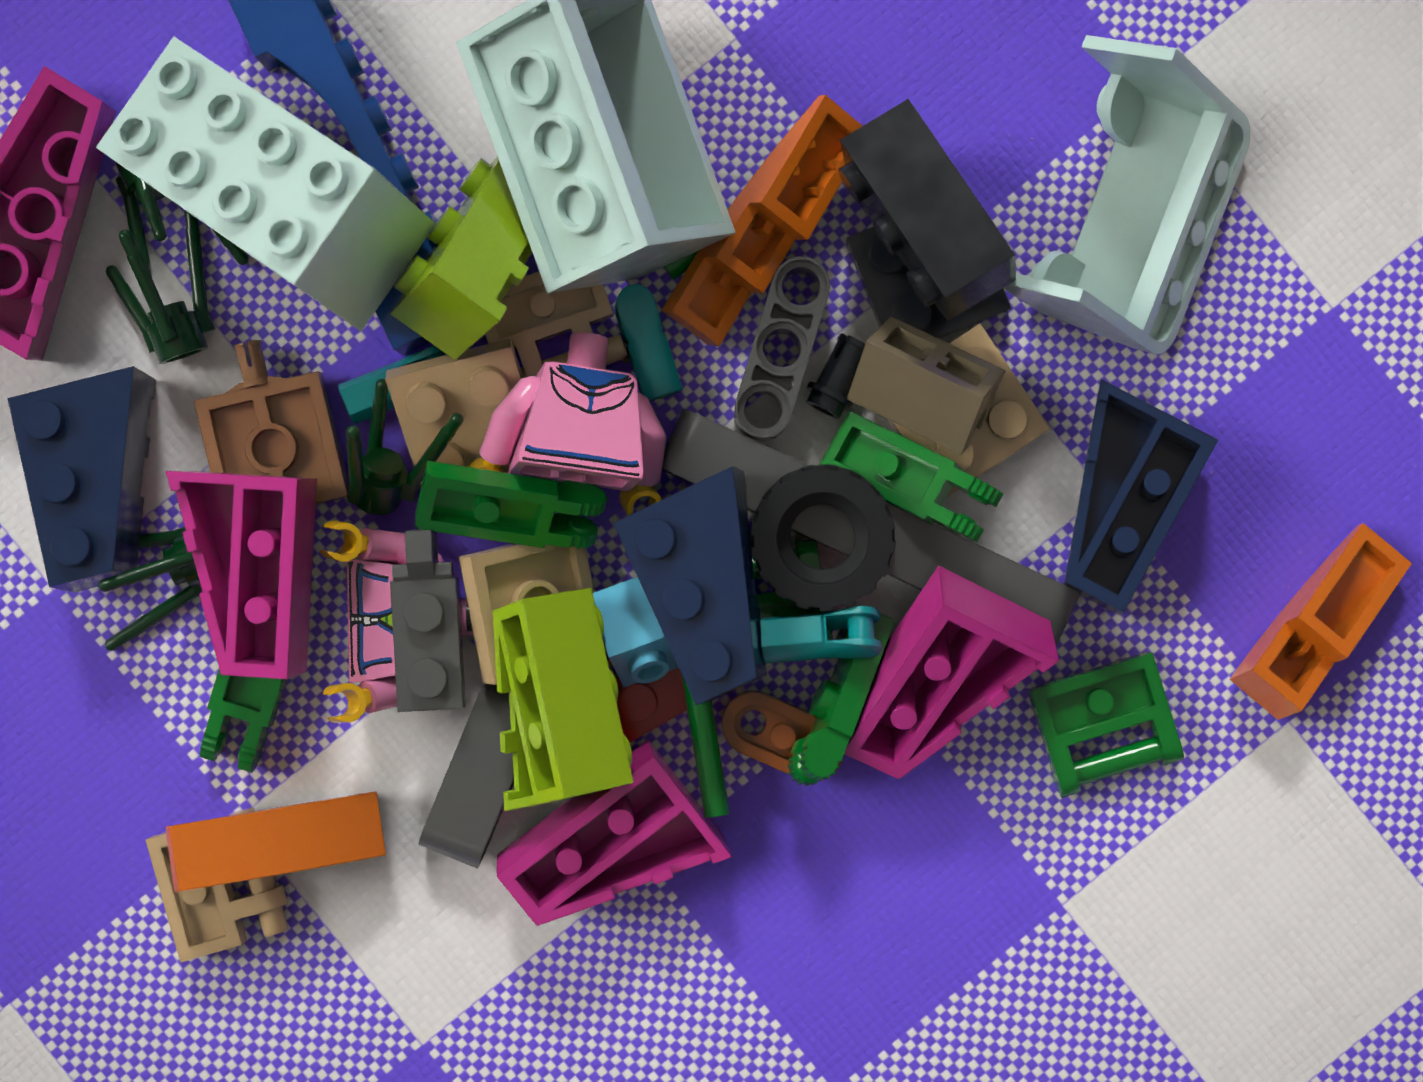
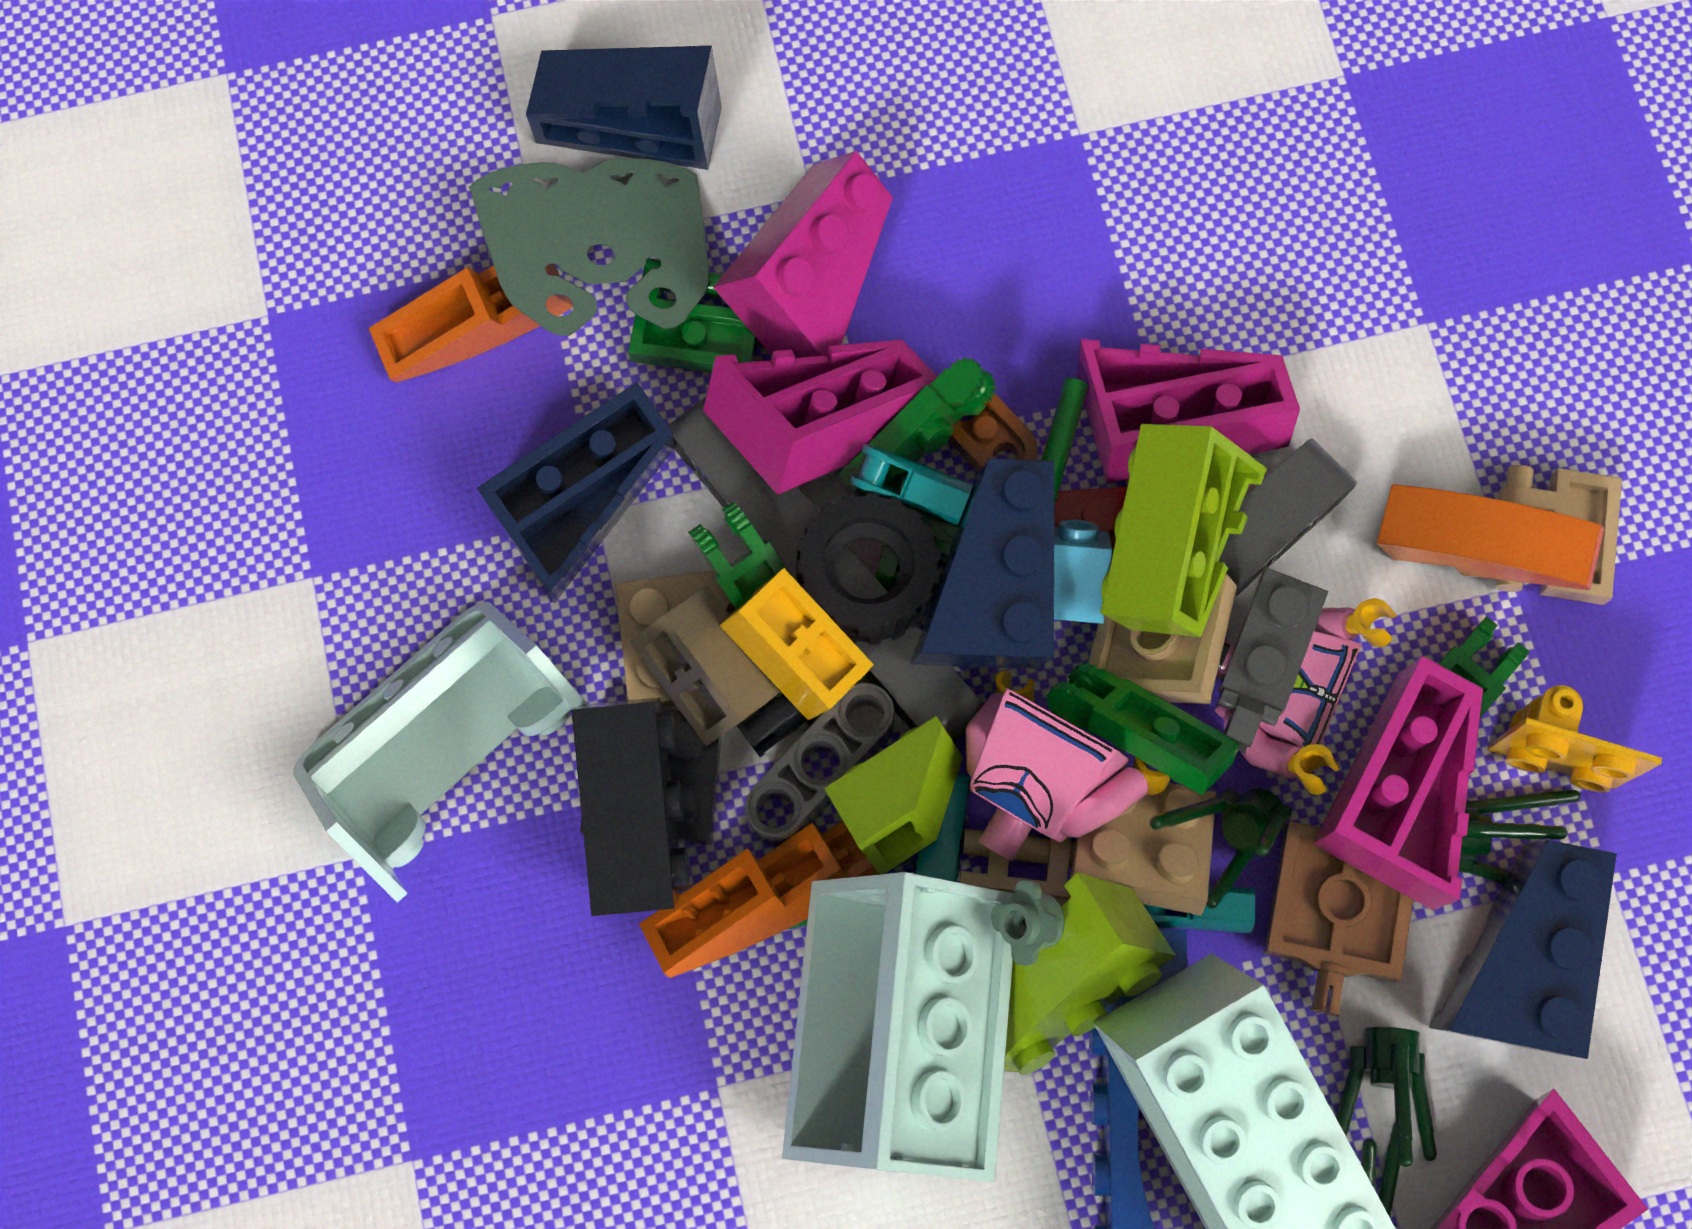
camera: 150 degrees left, 15 degrees down
(153, 677) = (1548, 738): none -> yellow hinge
(523, 263) = (1042, 926): none -> sand green plate
(695, 343) = (899, 795): none -> lime slope
(850, 433) = (797, 645): none -> yellow hinge
(1025, 821) = (810, 259): none -> dark pink wedge
(1263, 778) = (589, 209): none -> sand green piece
(1285, 905) = (628, 102): none -> dark blue wedge

